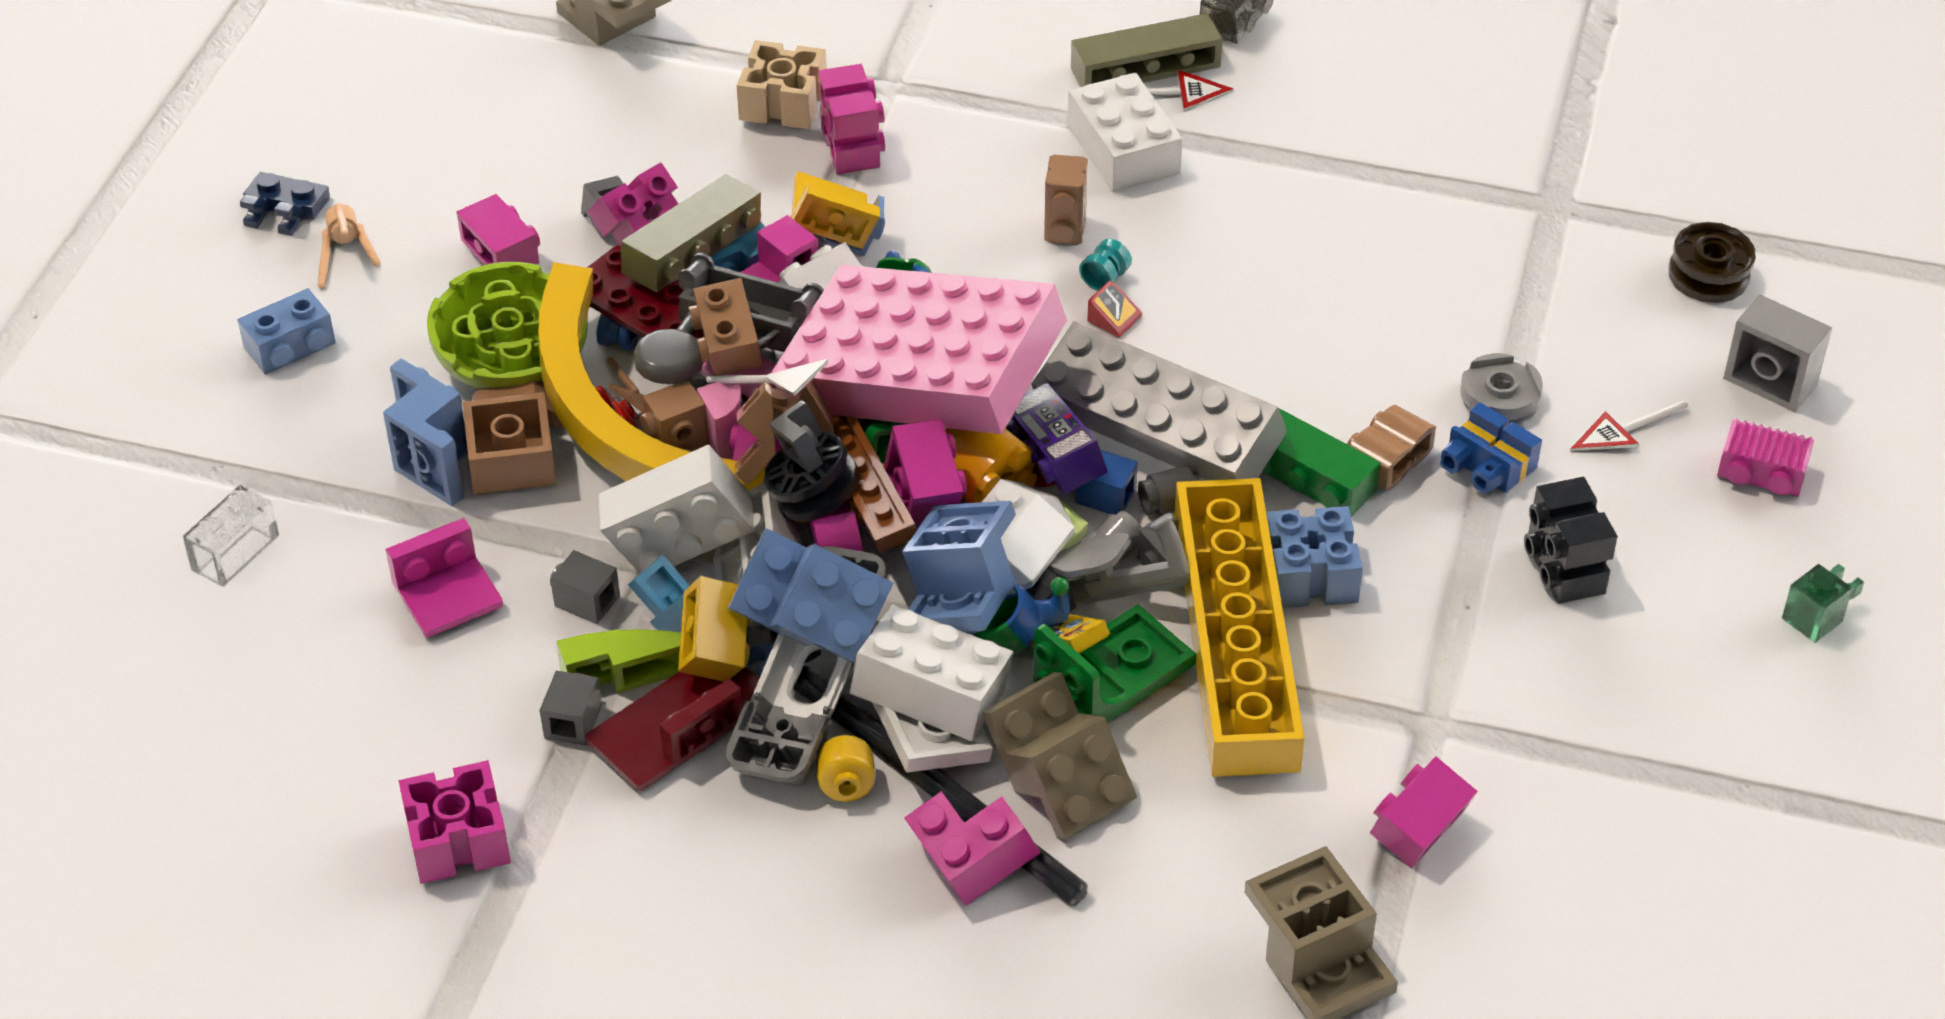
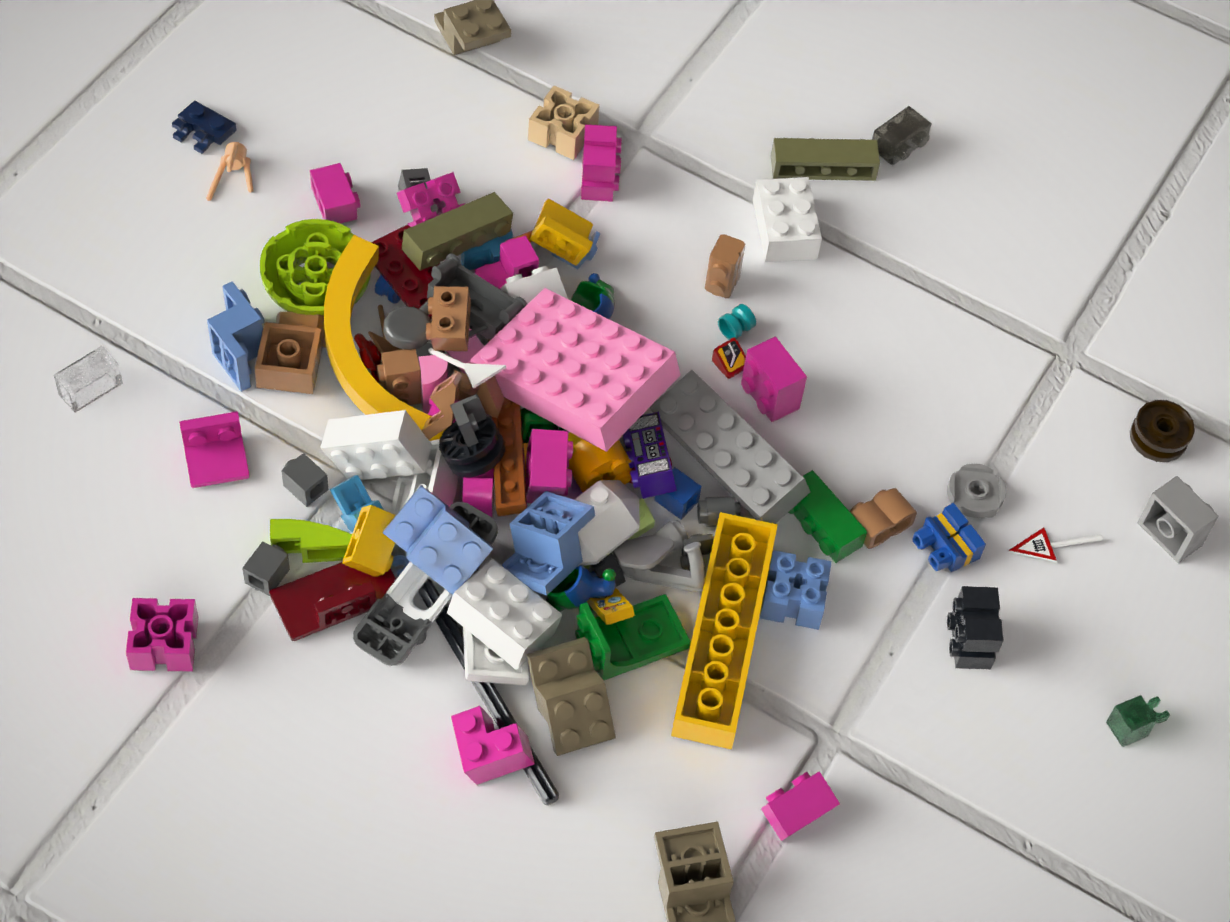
camera: 10 degrees right, 10 degrees up
(286, 331) = (172, 230): medium blue brick -> none
(843, 764) = (430, 662): yellow head -> none
(1183, 314) = (773, 379): none -> dark pink brick
(1193, 90) = (849, 195): piece -> none
(1765, 457) = (1140, 597): dark pink brick -> none

